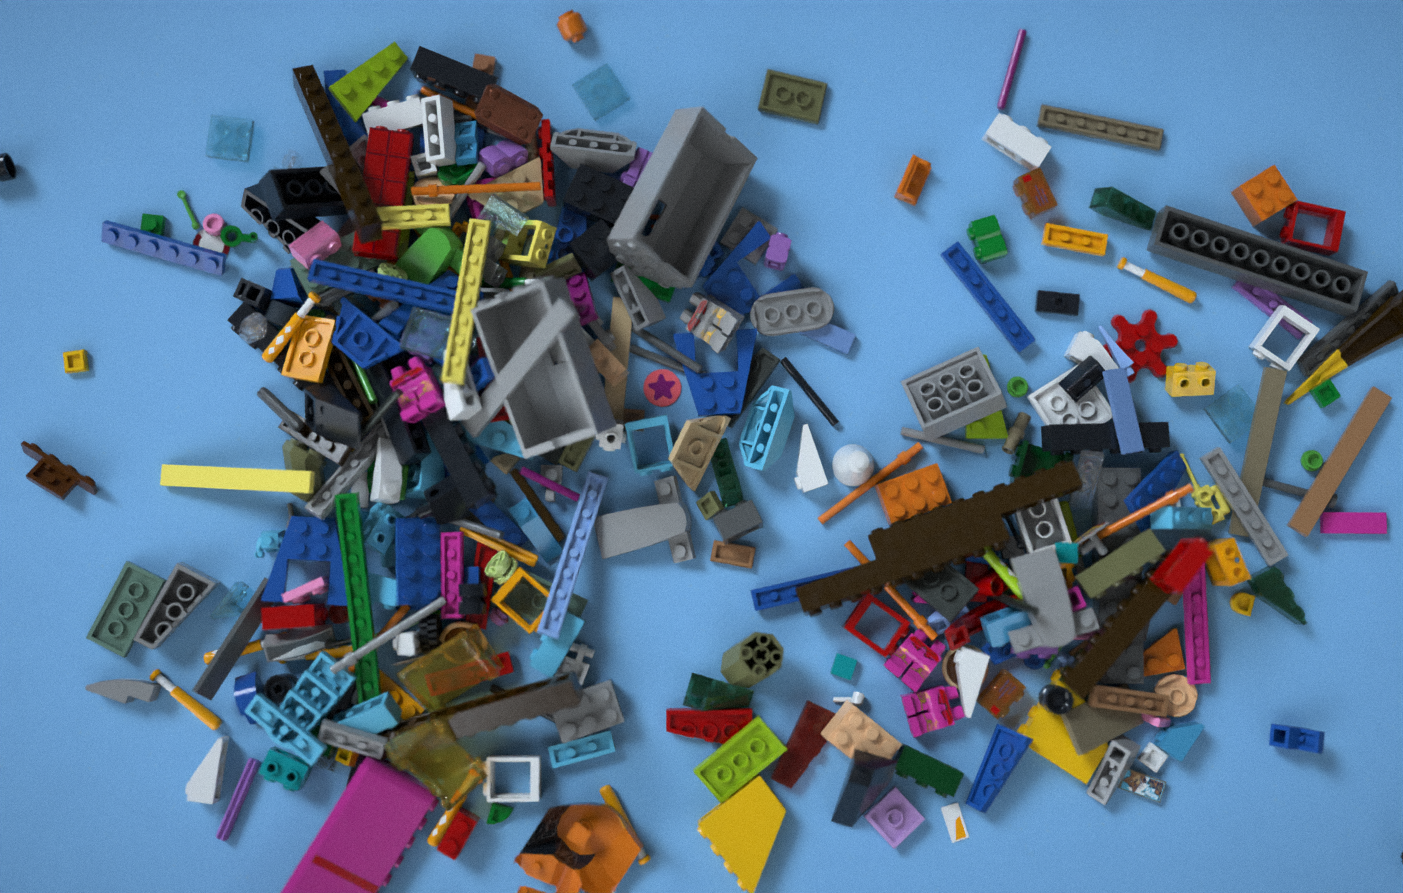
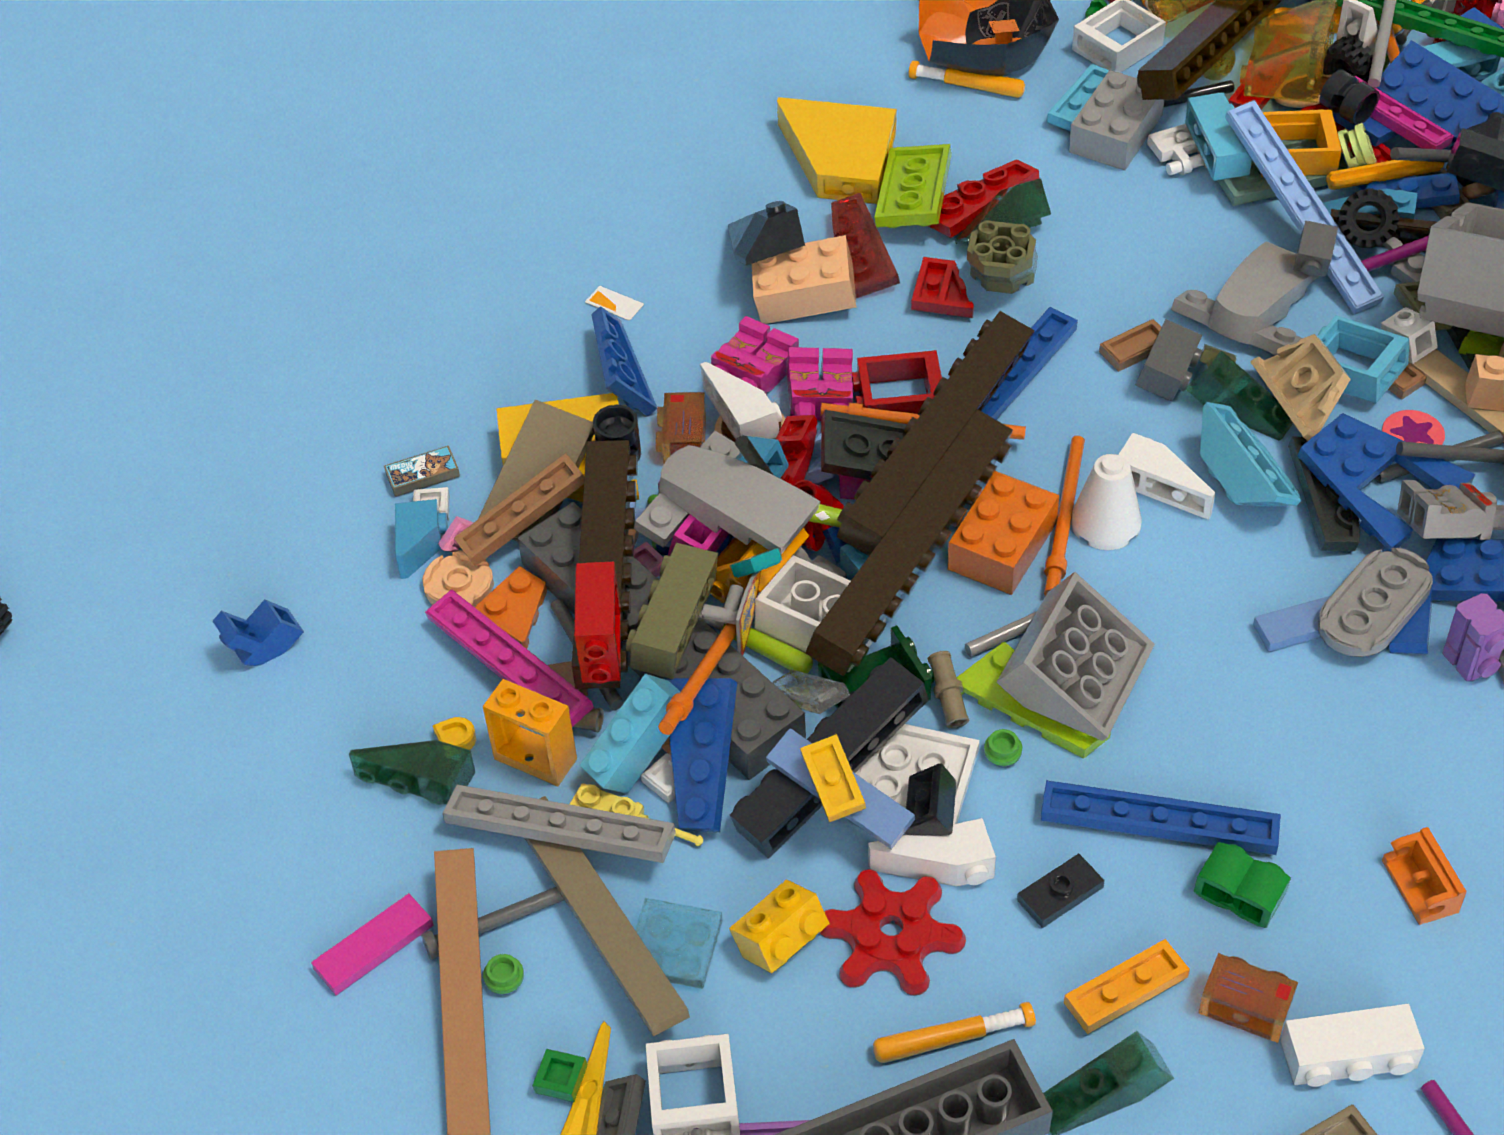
camera: 145 degrees right, 35 degrees down
(546, 519) = (1374, 198): none -> black tyre
(603, 517) = (1315, 248): none -> dark grey brick
(792, 676) = (941, 289): none -> red wing
(809, 391) = (1249, 550): black bar -> none
(843, 666) = (892, 337): teal tile -> none
(857, 699) = (845, 320): white hand -> none
(894, 817) = (690, 256): lavender plate -> none
(927, 771) = (695, 312): dark green brick -> none
(1113, 768) = (475, 455): light grey slope -> none
(1117, 353) = (901, 877): light blue piece -> none
(1130, 411) = (833, 778): none -> yellow plate

